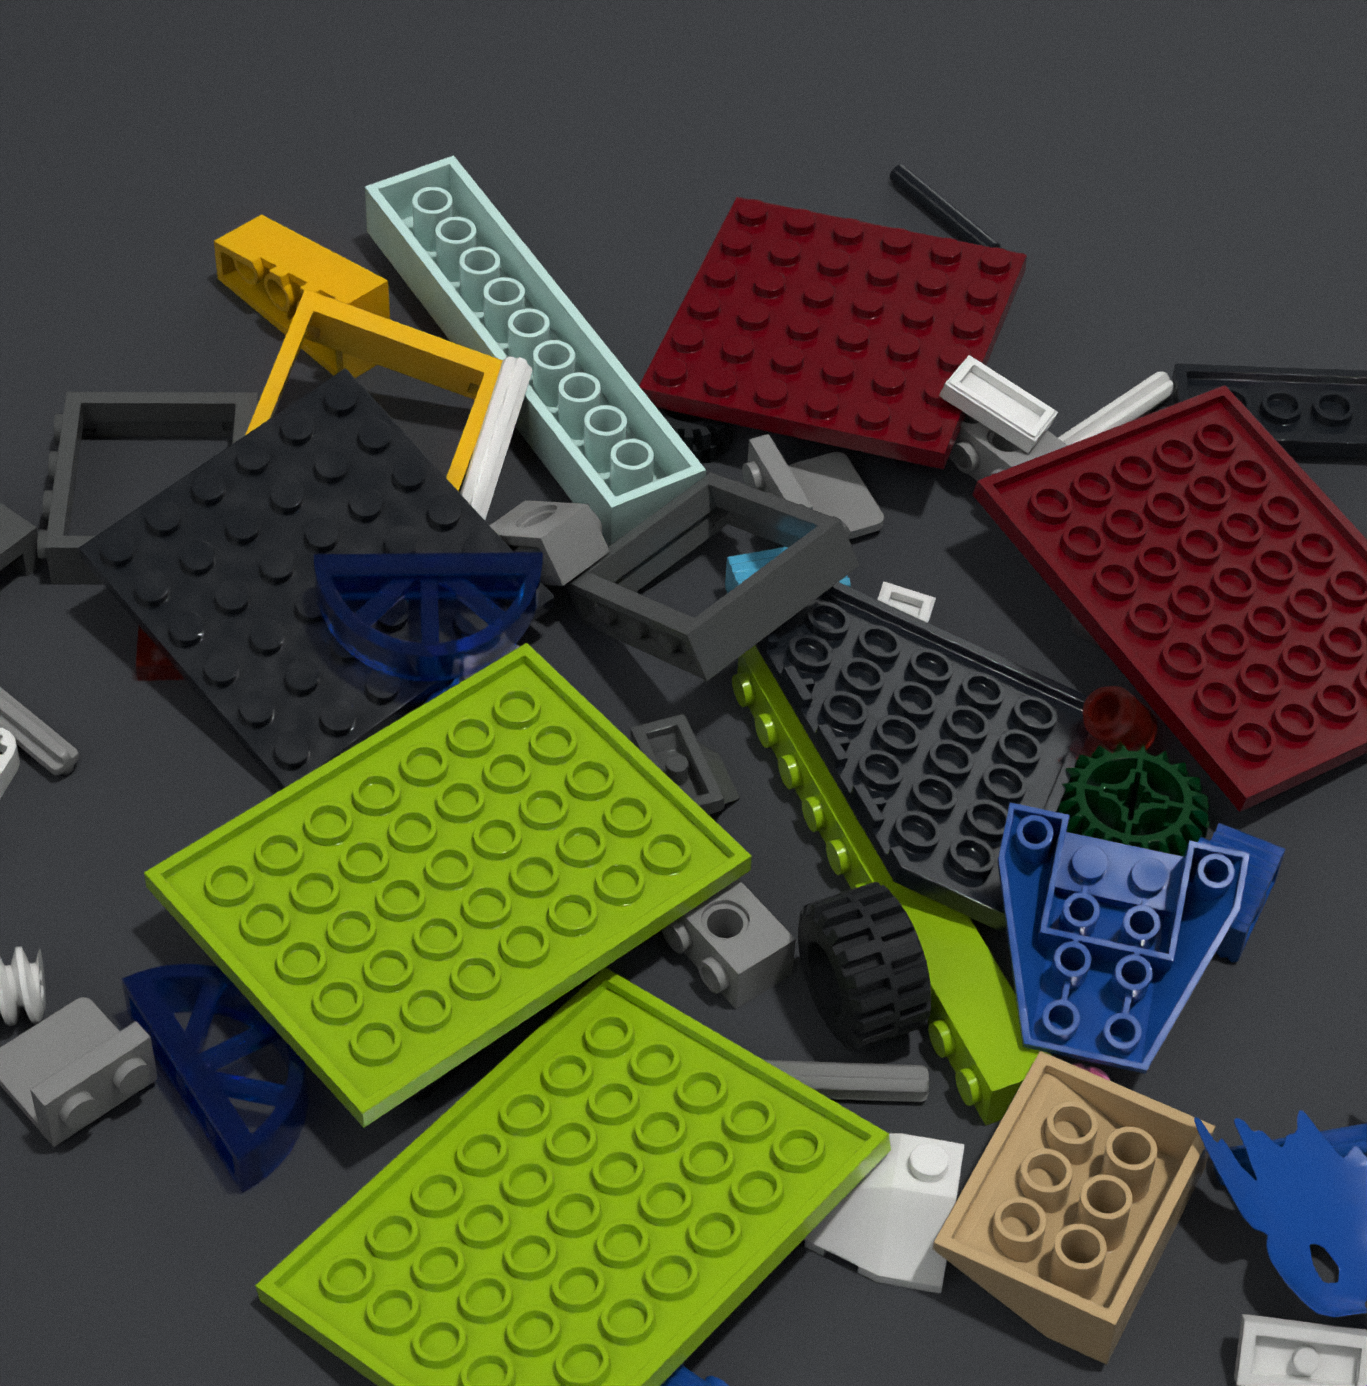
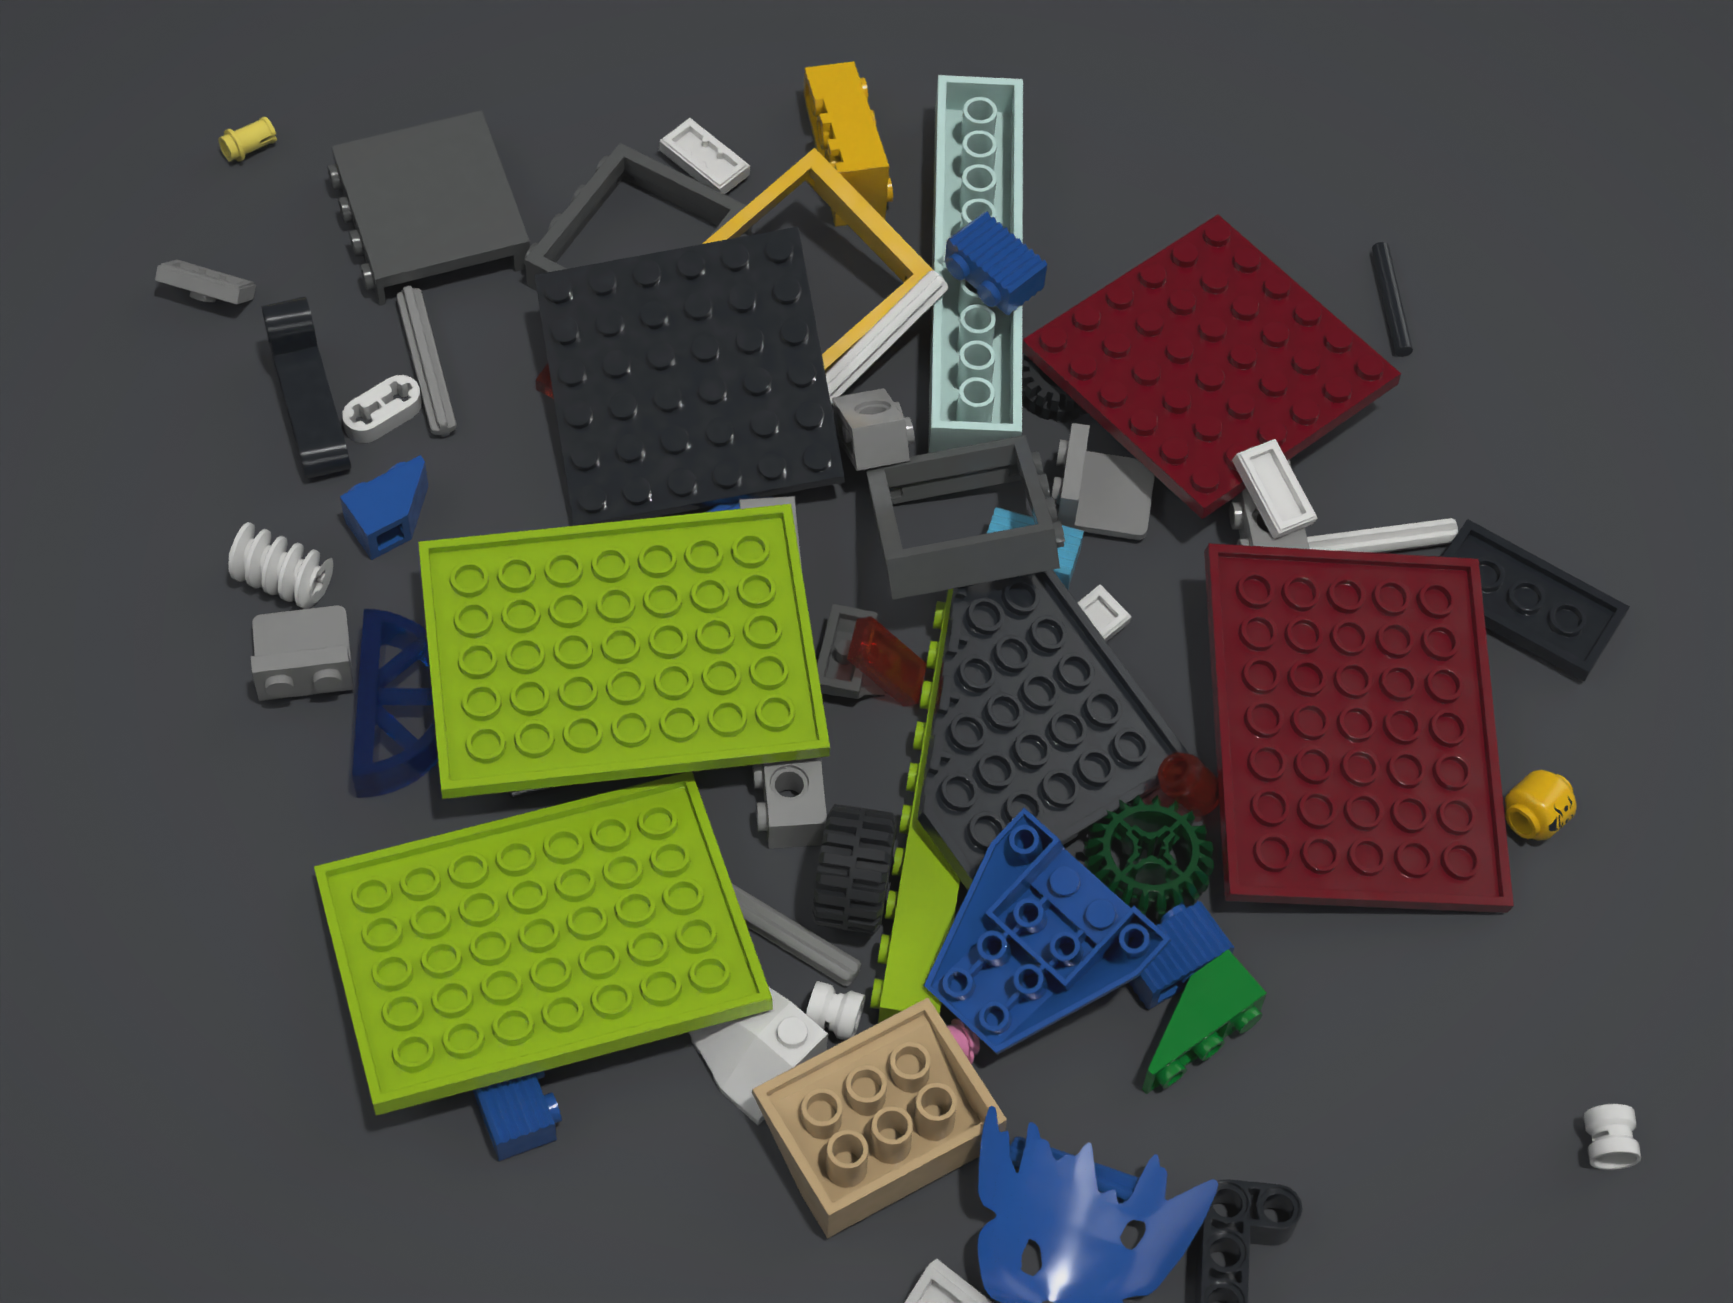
camera: 30 degrees right, 10 degrees up
(61, 872) = (386, 508): none -> blue slope
(157, 370) = (704, 157): none -> white plate
(428, 578) = (747, 419): clear blue window -> none
(565, 323) = (995, 263): none -> blue brick
(730, 753) = (887, 661): none -> clear red plate
(948, 1120) = (837, 1012): none -> white wheel
(1298, 933) = (1212, 1006): none -> green slope

